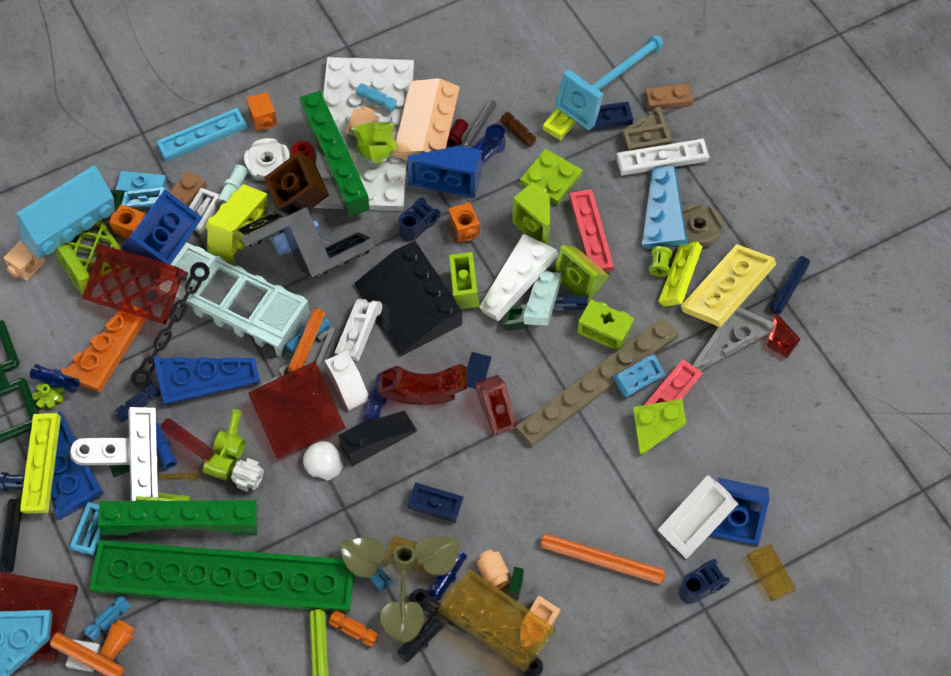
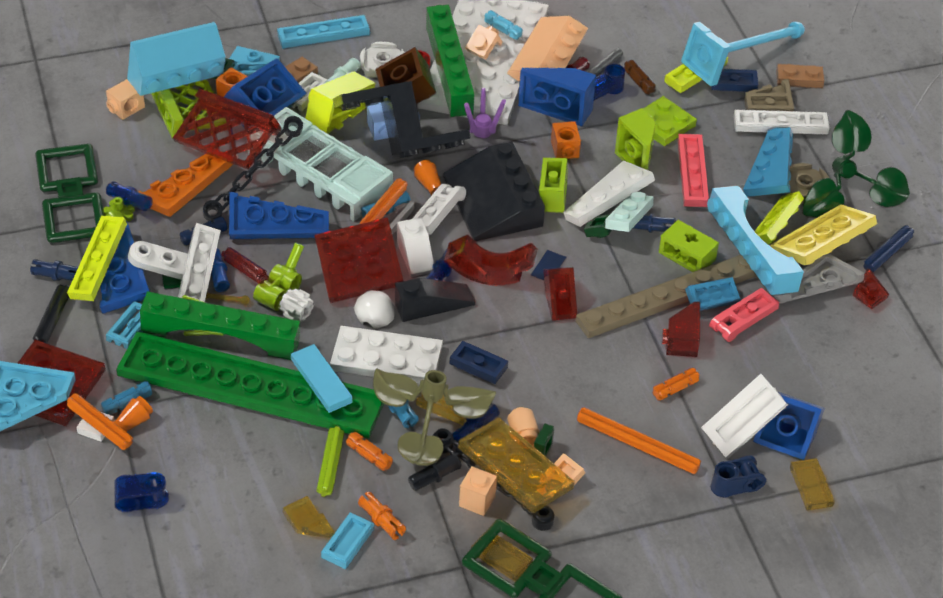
camera: 10 degrees right, 15 degrees down
(262, 111) = (387, 20): orange brick -> none
(290, 559) = (321, 378): none -> medium azure tile
(340, 290) = (427, 175): none -> orange cone
(345, 511) = (364, 350): none -> white plate
(375, 140) = (493, 55): lime helmet -> none
(380, 217) = (483, 125): none -> medium lavender plant
(419, 218) = (520, 130): dark blue piece -> none
(466, 655) = (477, 491): none -> light nougat brick
(579, 272) = (671, 197): lime slope -> none
(620, 426) = (683, 332): none -> clear red slope
(624, 485) = (676, 384): none -> orange axle
(658, 422) = (723, 334): lime wing -> none
(660, 261) = (758, 205): lime bush -> none
(695, 343) = (775, 270): none -> medium azure arch
(736, 178) = (849, 136): none -> dark green plant

